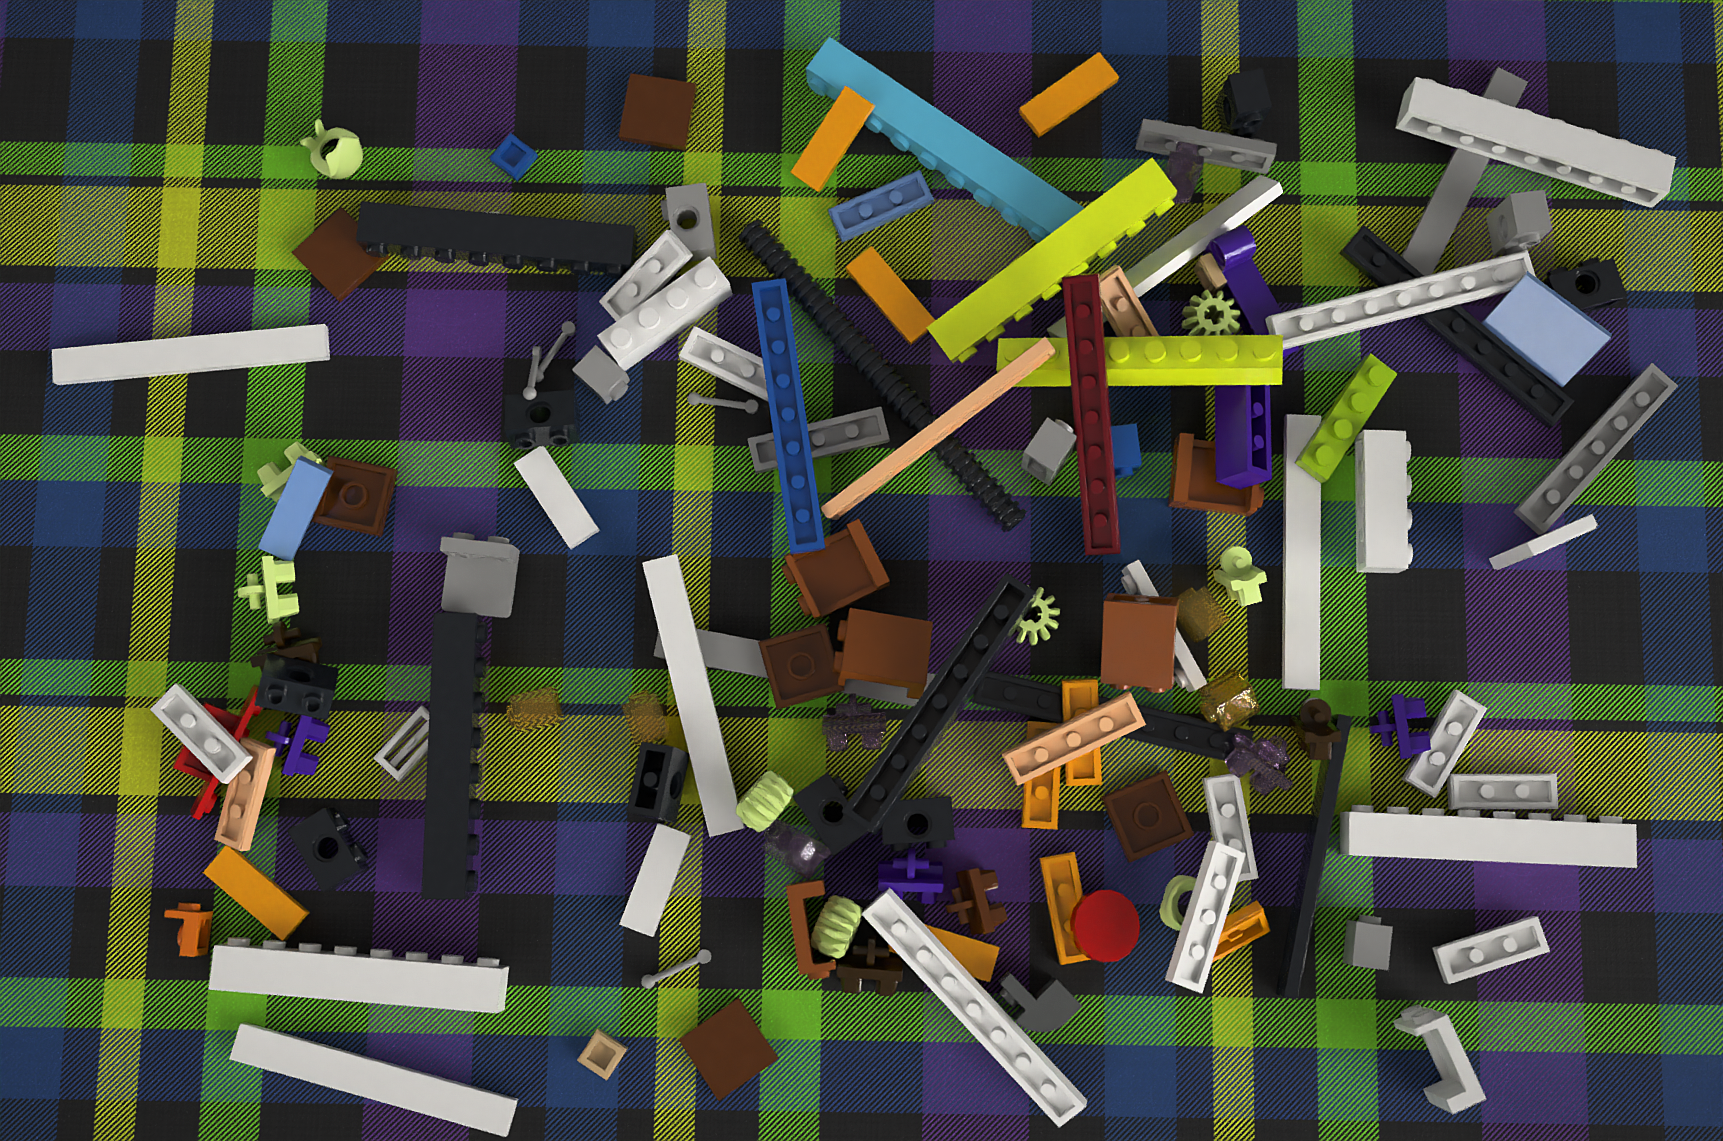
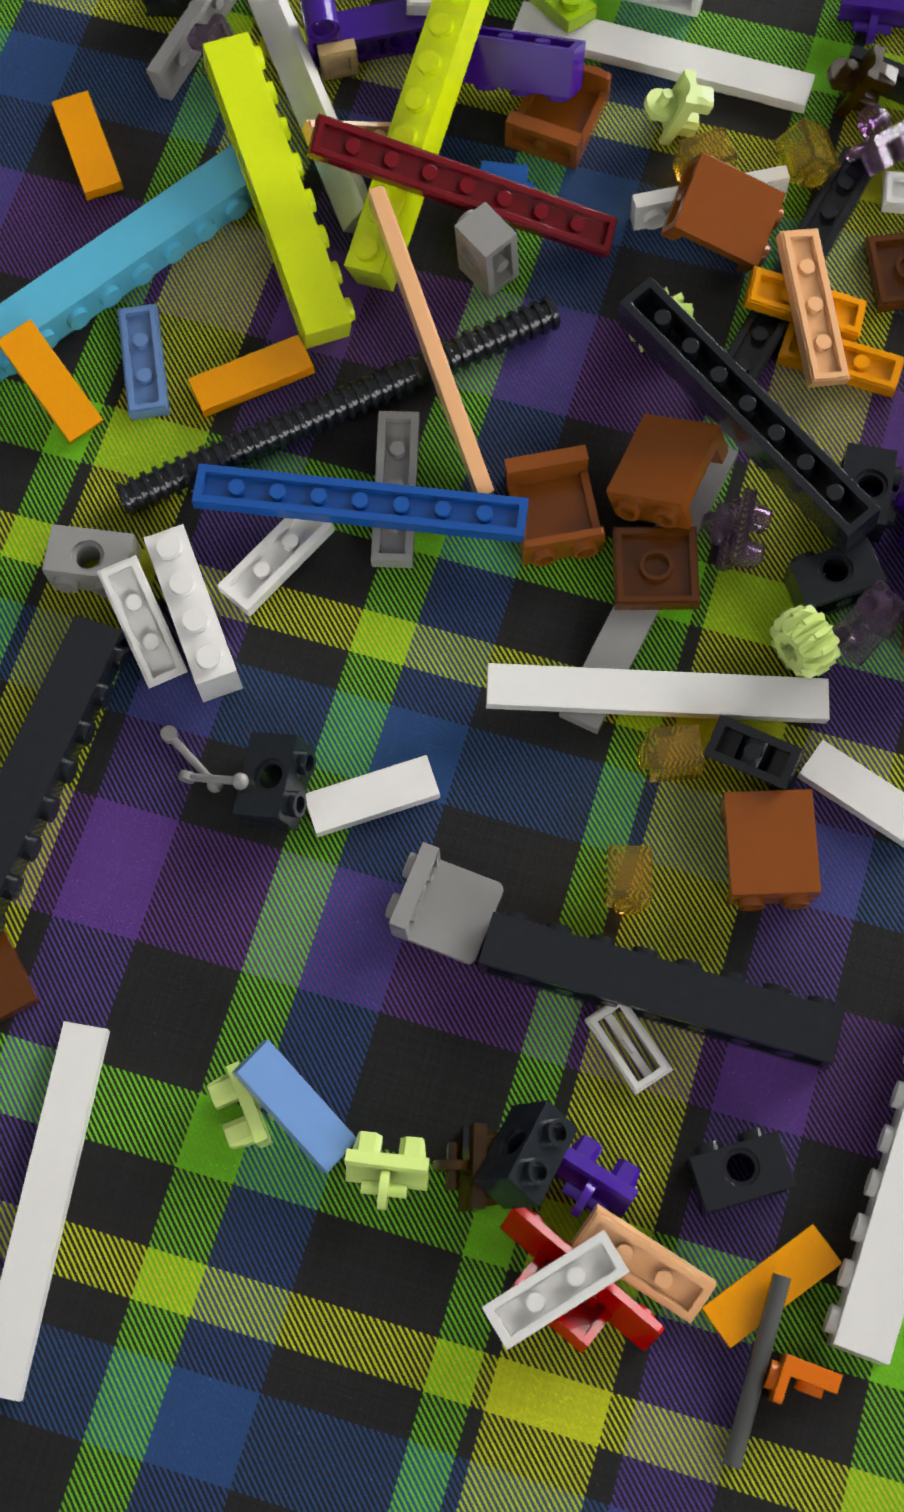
camera: 70 degrees left, 10 degrees down
(194, 895) = (756, 1371): none -> dark grey bar
(356, 496) = (302, 1030): reddish brown tile -> none
(585, 813) = (771, 848): none -> dark orange panel
(602, 375) = (242, 703): light grey brick -> none
(750, 406) = (331, 556): light grey hinge -> none
(1216, 309) = (383, 69): yellowish green gear -> none

